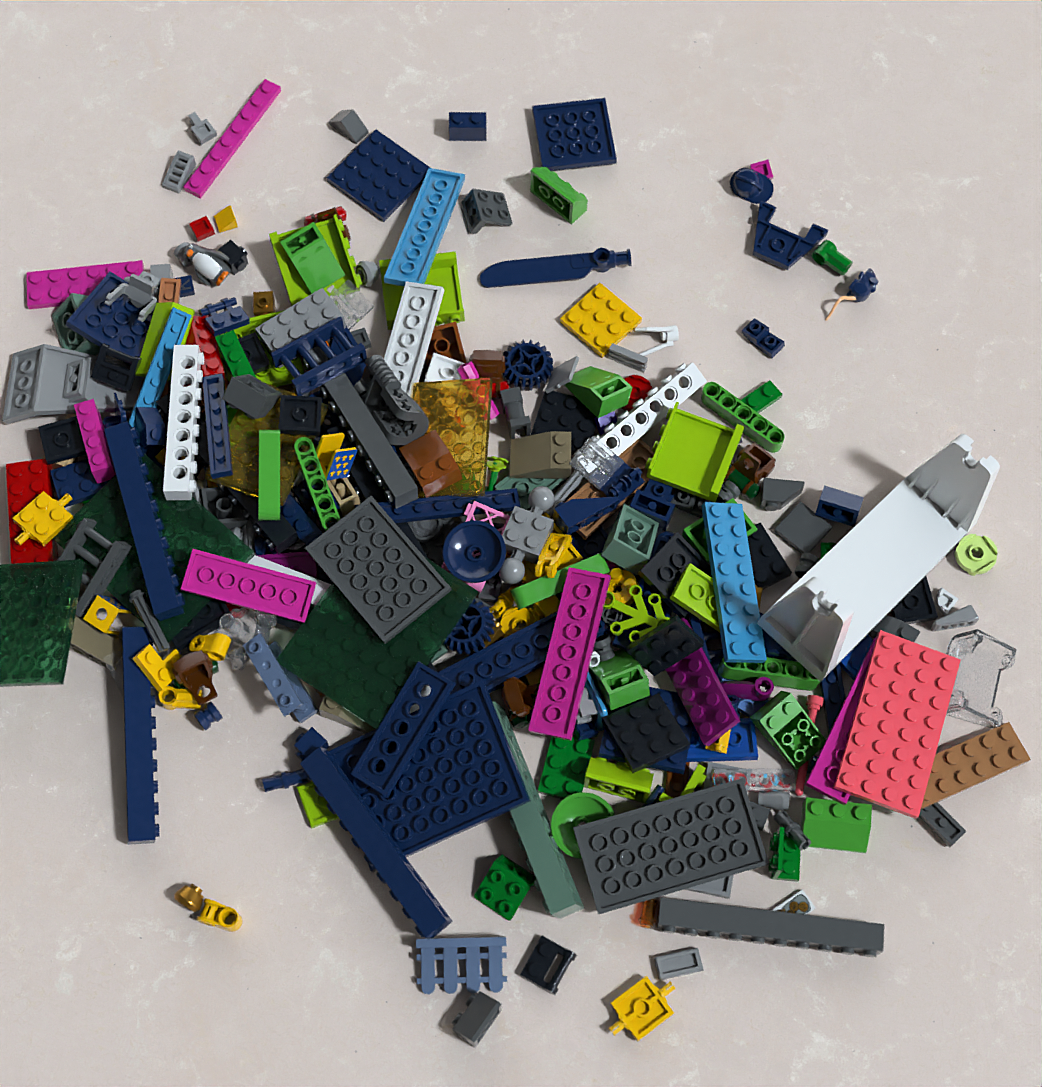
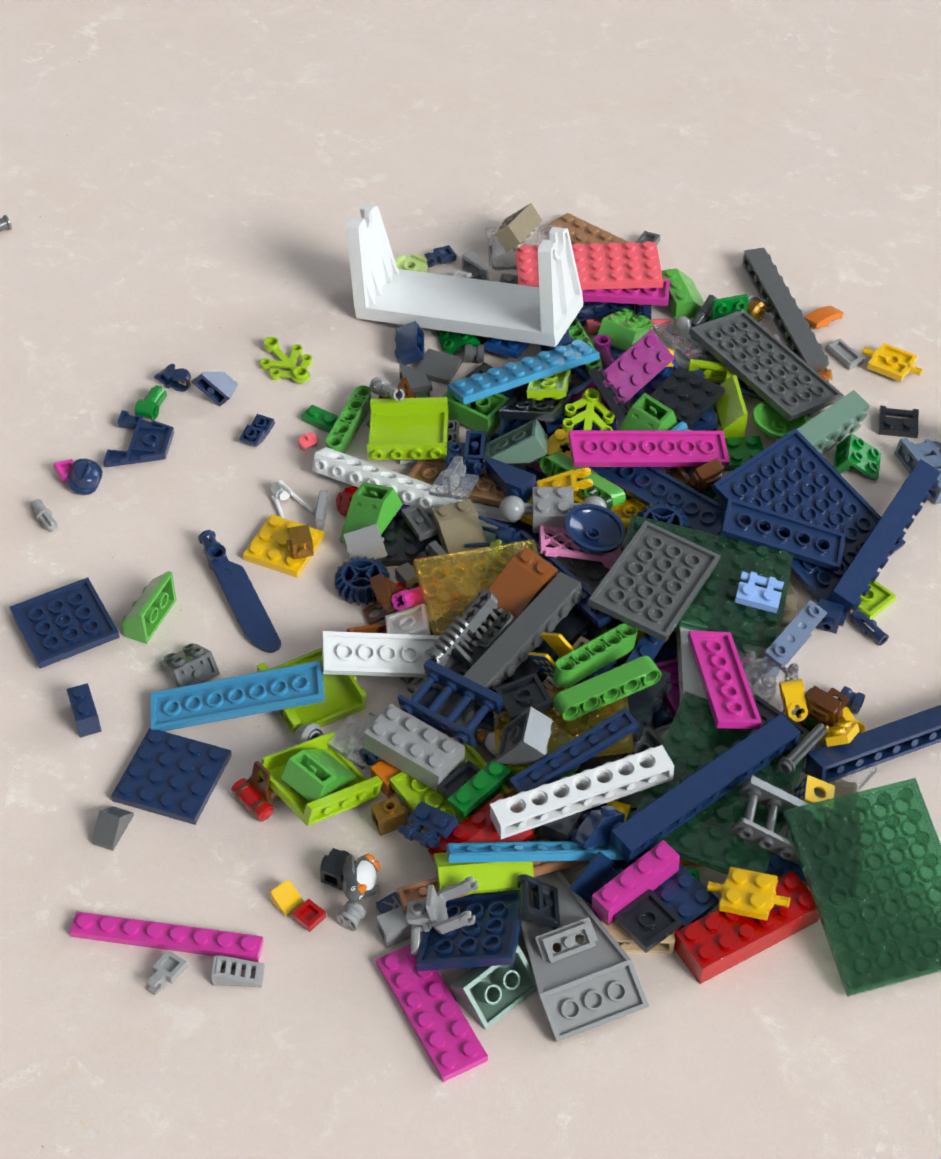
camera: 110 degrees left, 20 degrees down
(329, 662) = (757, 596): none -> light blue plate
(511, 482) = (503, 533): none -> dark blue plant
(578, 425) = (419, 522): none -> dark grey plate
(583, 321) = (300, 542): none -> pearl gold brick
(711, 145) = (43, 515): none -> light grey axle
(730, 375) = (307, 441): none -> coral piece
(745, 967) = (822, 316): none -> orange slope
(759, 447) = (385, 388): none -> light grey pin
(779, 890) = (756, 310): none -> pearl gold cone
(830, 312) = (216, 386): none -> slope
(857, 393) = (298, 374): none -> lime plant
(986, 668) = (518, 227): none -> wedge
(987, 594) = (442, 255): none -> dark blue plate

